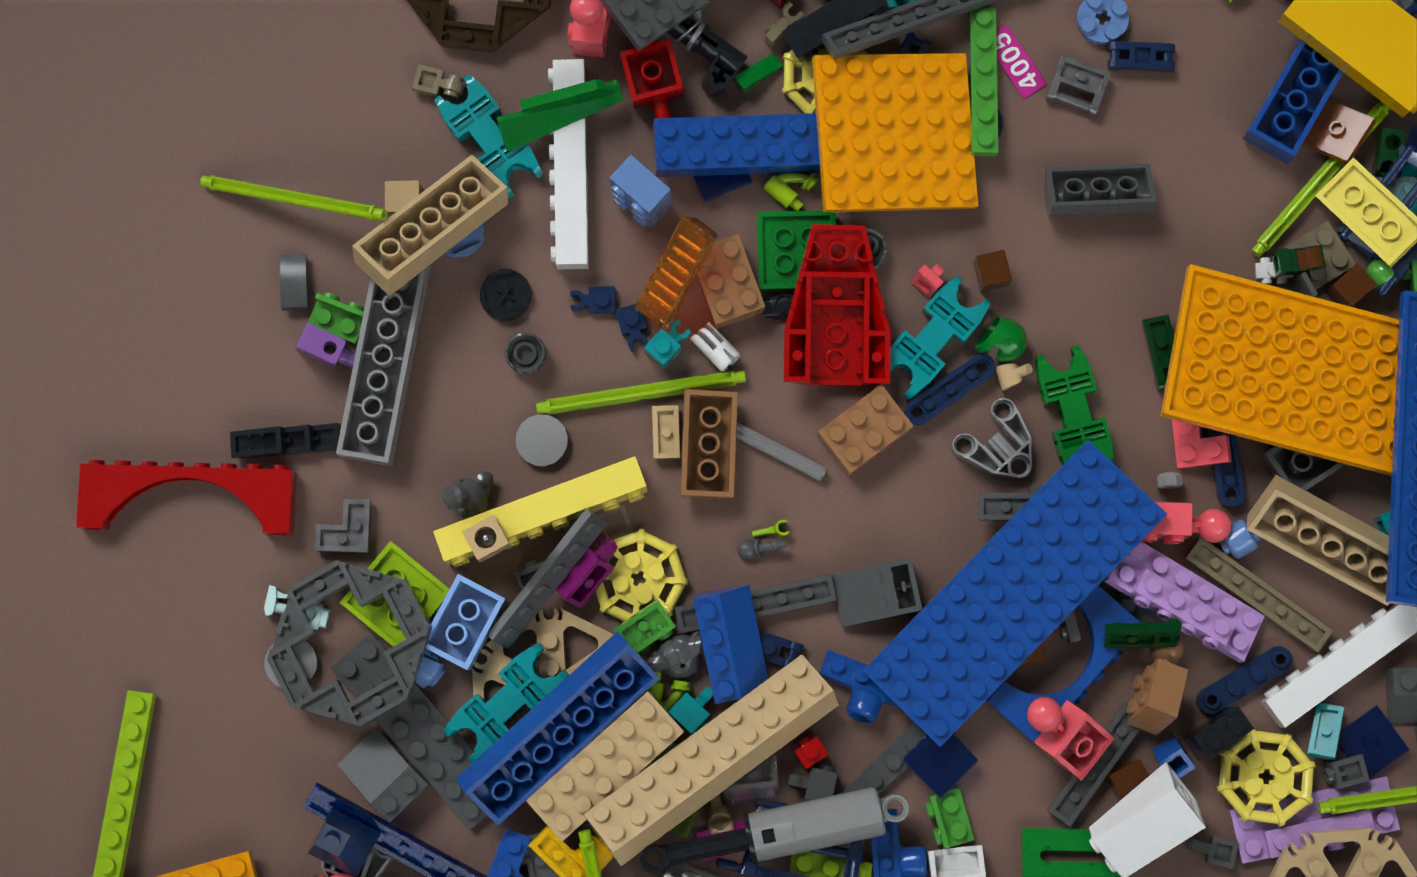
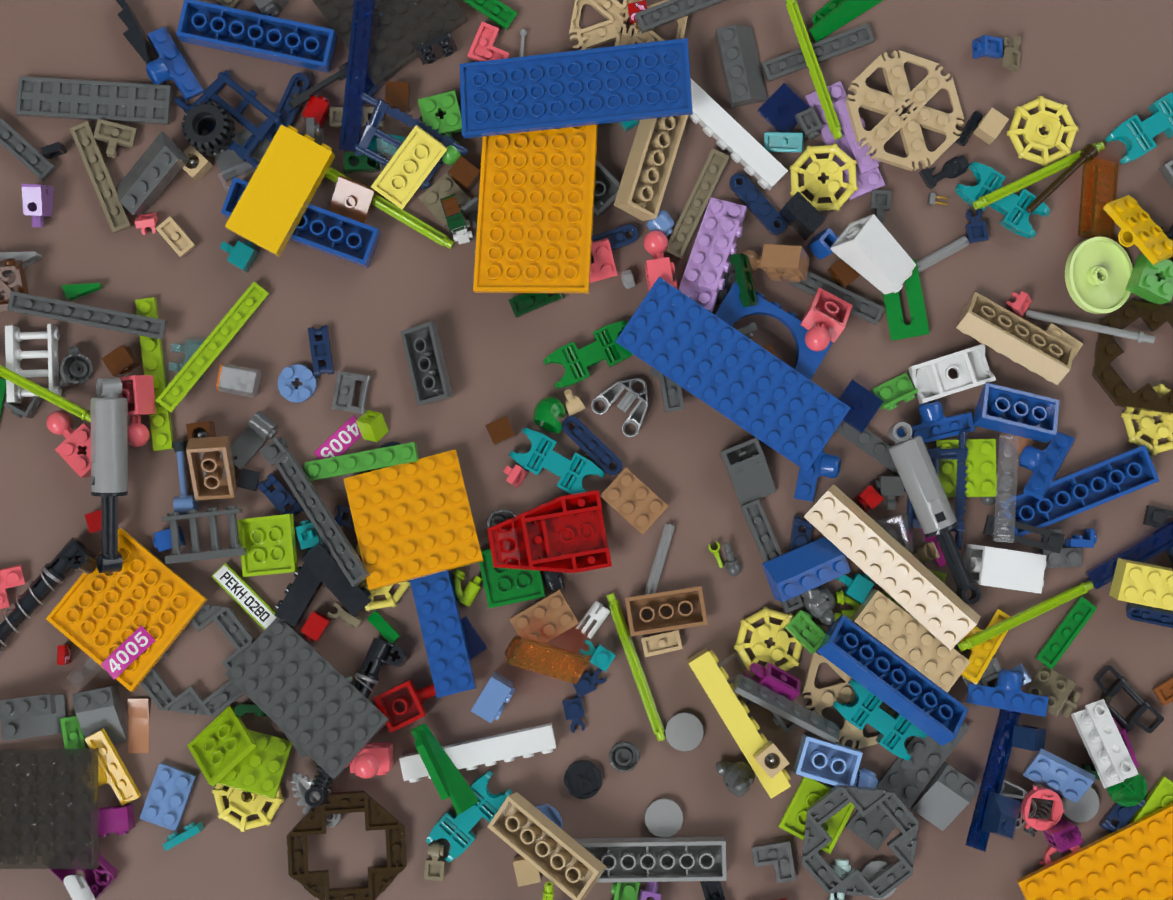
camera: 105 degrees left, 5 degrees up
(433, 391) = (663, 817): none -> light grey tile
(1028, 105) = (372, 426): none -> lime panel

